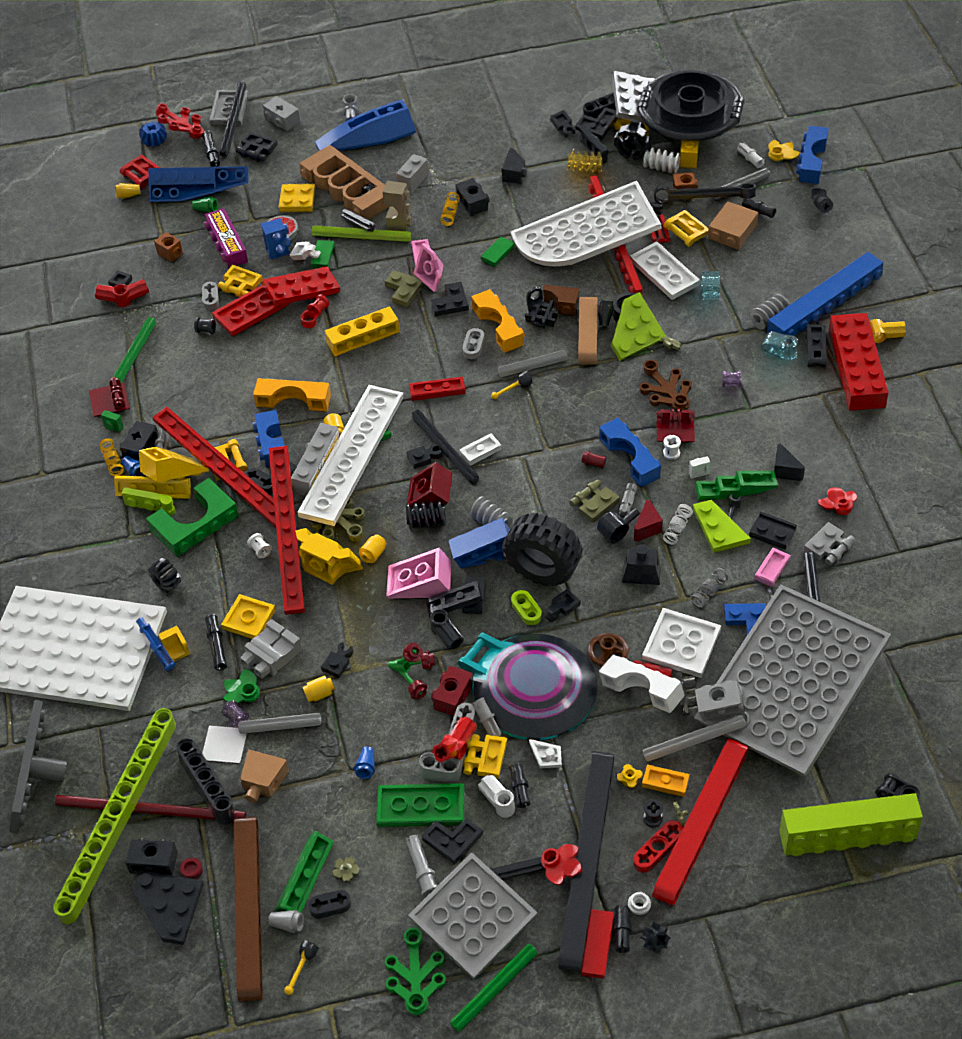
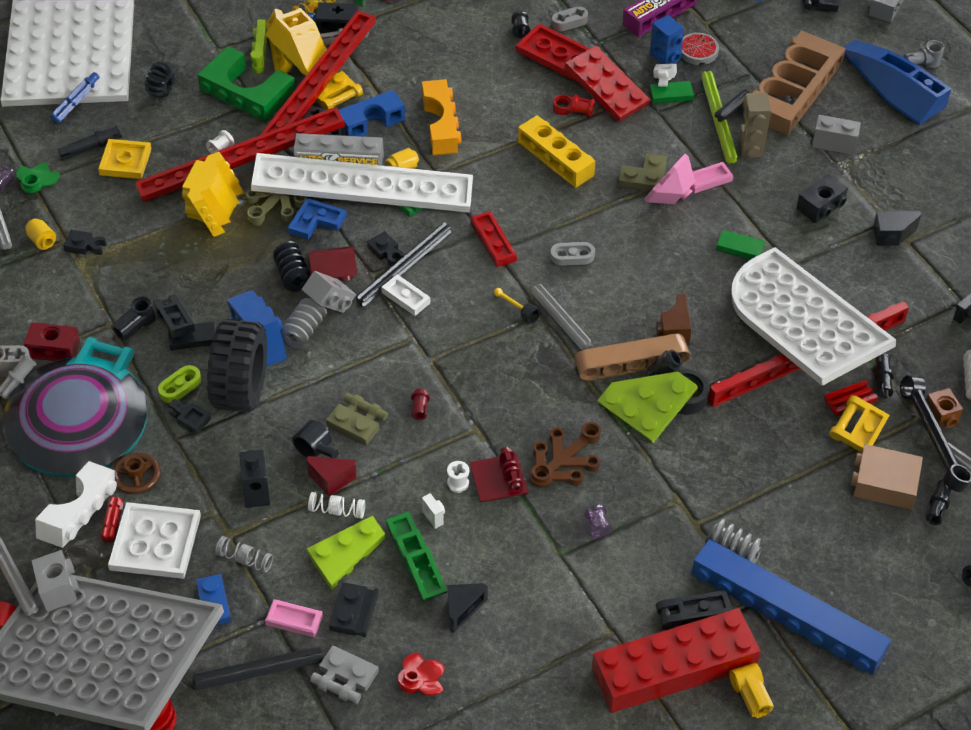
camera: 70 degrees right, 0 degrees up
(174, 643) = (84, 115): yellow panel -> none
(243, 278) = (604, 36): yellow plate -> none
(271, 650) = (84, 185): light grey hips -> none
(297, 198) = (755, 49): yellow plate -> none
(371, 493) = (313, 214): none -> blue plate
(372, 549) = (235, 233): yellow brick -> none
(412, 656) = (67, 281): dark red plant -> none
(420, 576) = (203, 283): bright pink slope -> none
(448, 213) = (793, 183): yellow piece -> none
(453, 303) = (638, 224): black plate -> none
(471, 489) = (329, 292): none -> light grey brick
(488, 307) = (598, 281): light orange arch -> none
(536, 314) = (655, 301): black piece -> none
(581, 161) = (938, 295): clear yellow piece -> none
(617, 436) = (419, 453): blue arch -> none
(628, 499) = (367, 450): light grey axle -> none
(664, 270) = (771, 417): white plate -> none
(671, 343) = (641, 447): olive plant -> none
(710, 285) = (762, 469): clear light blue brick -> none
(733, 504) = (386, 561): black hand -> none
(778, 344) = (677, 566): clear light blue piece -> none

